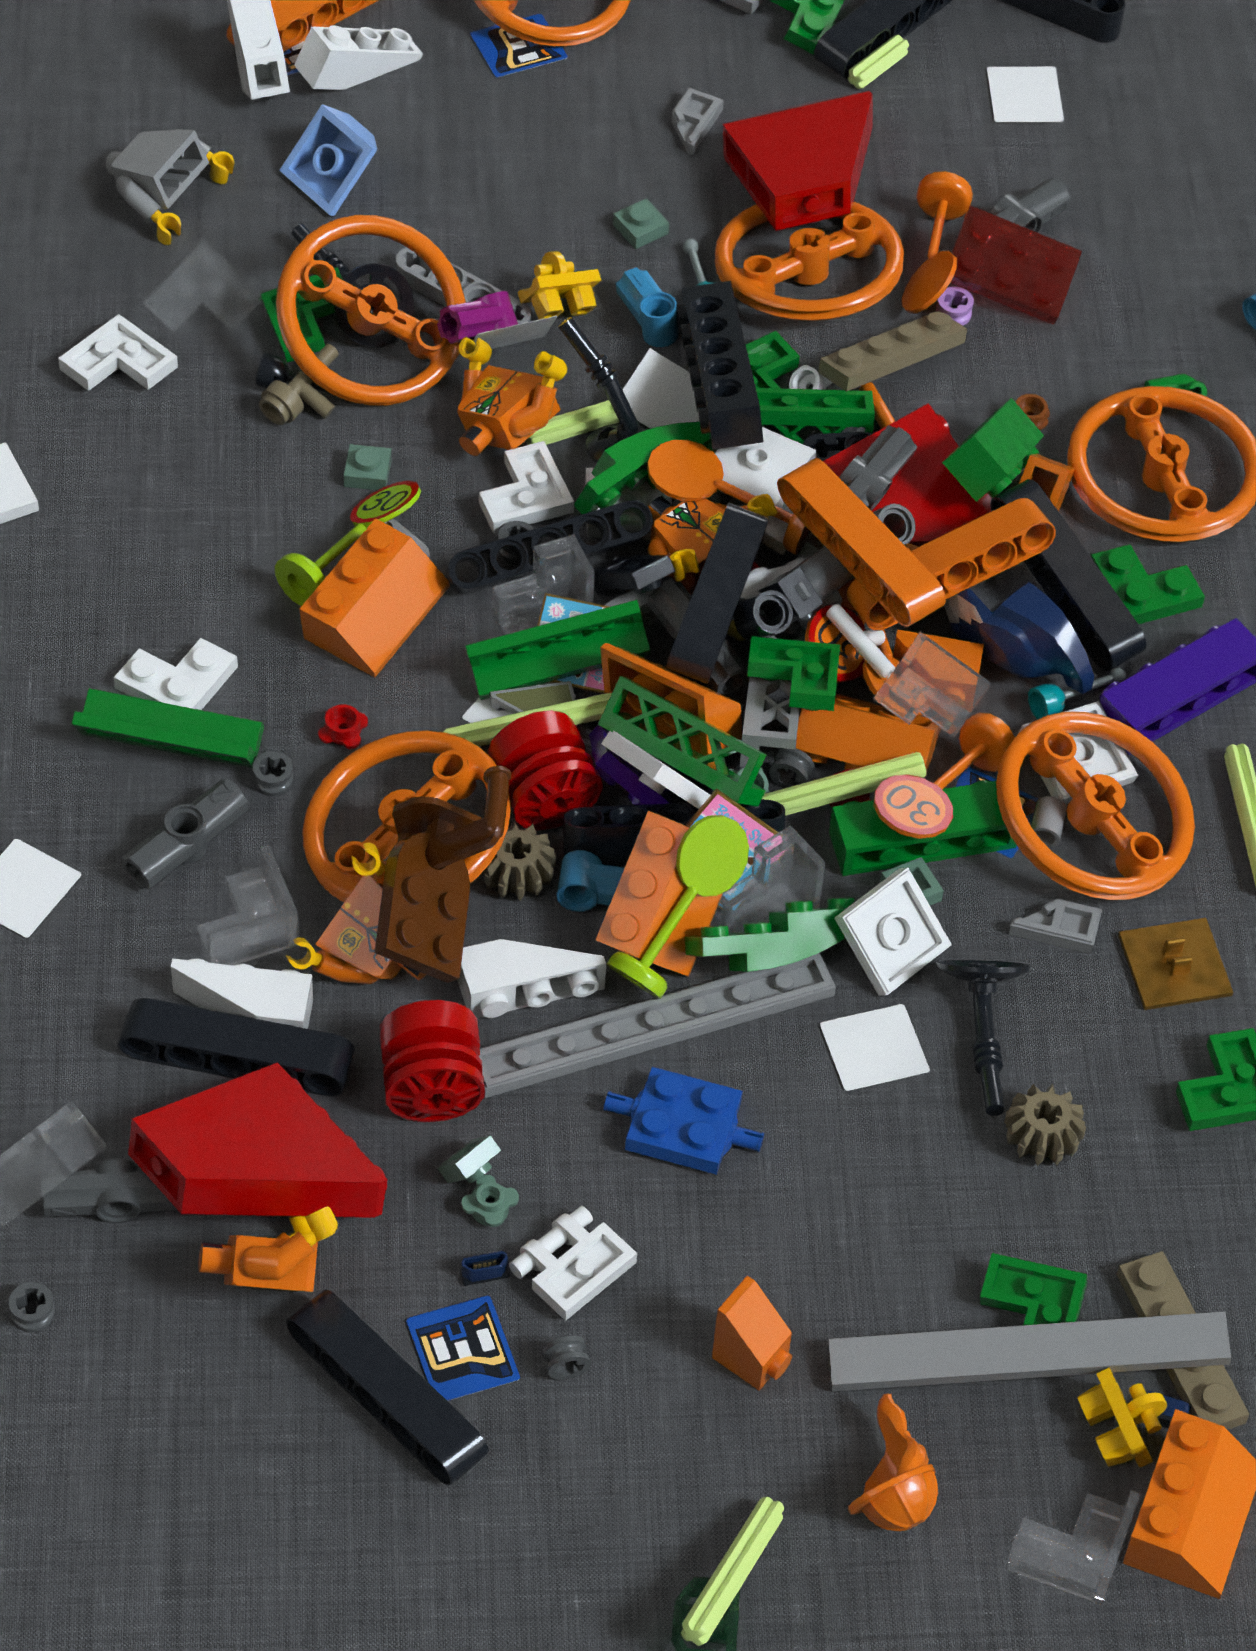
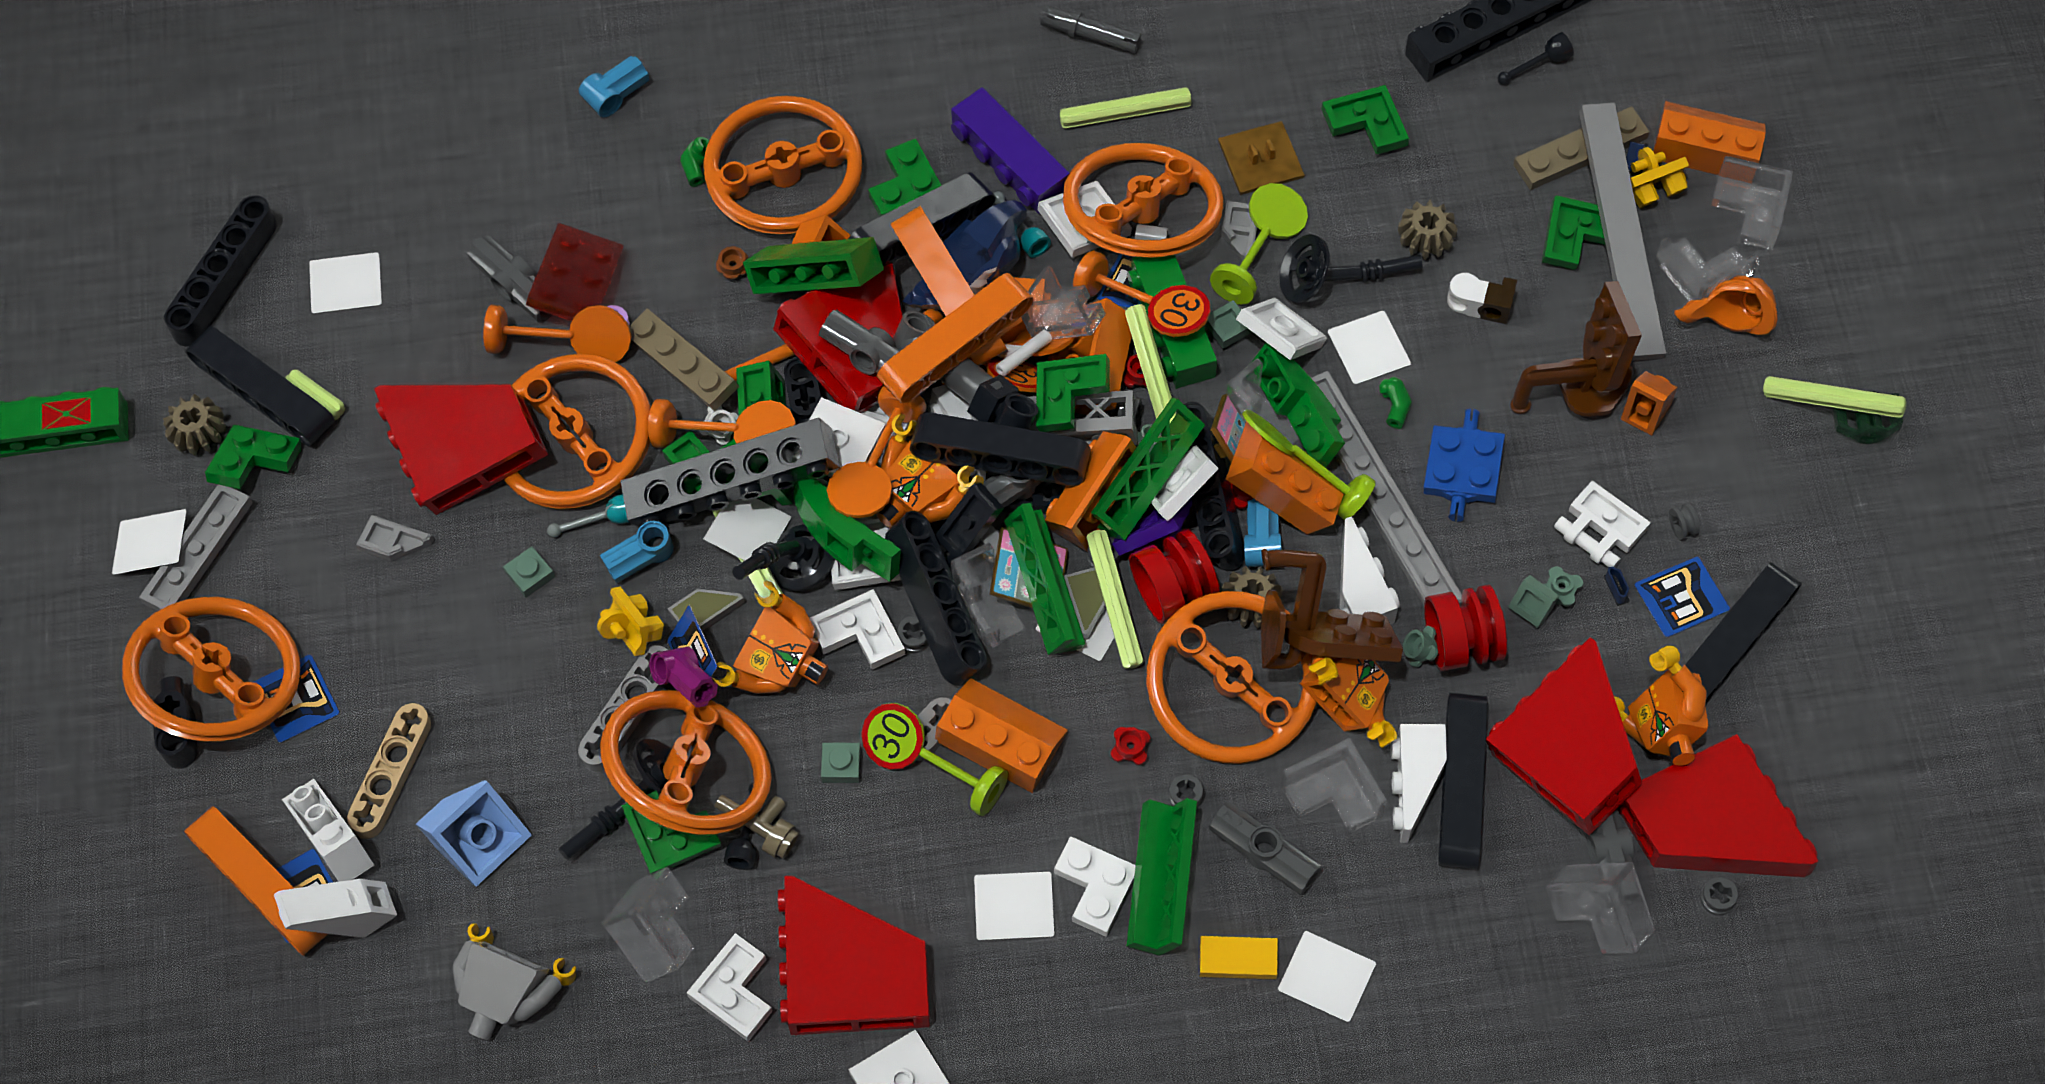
camera: 90 degrees left, 10 degrees up
(59, 800) = (1238, 957): none -> yellow tile
(123, 448) = (847, 967): none -> red slope
(134, 1317) = (1718, 817): none -> red slope
(168, 608) = (1014, 905): none -> white sticker
(462, 124) = (384, 769): none -> tan beam
(576, 377) = (707, 606): none -> tile
(785, 1062) = (1400, 398): none -> green arm
(806, 1255) = (1603, 374): none -> reddish brown plate
(809, 331) = (751, 423): none -> orange piece
(936, 1164) = (1481, 298): none -> leg
(959, 1446) = (1694, 275): none -> clear panel
(1080, 962) = (1277, 213): none -> lime piece

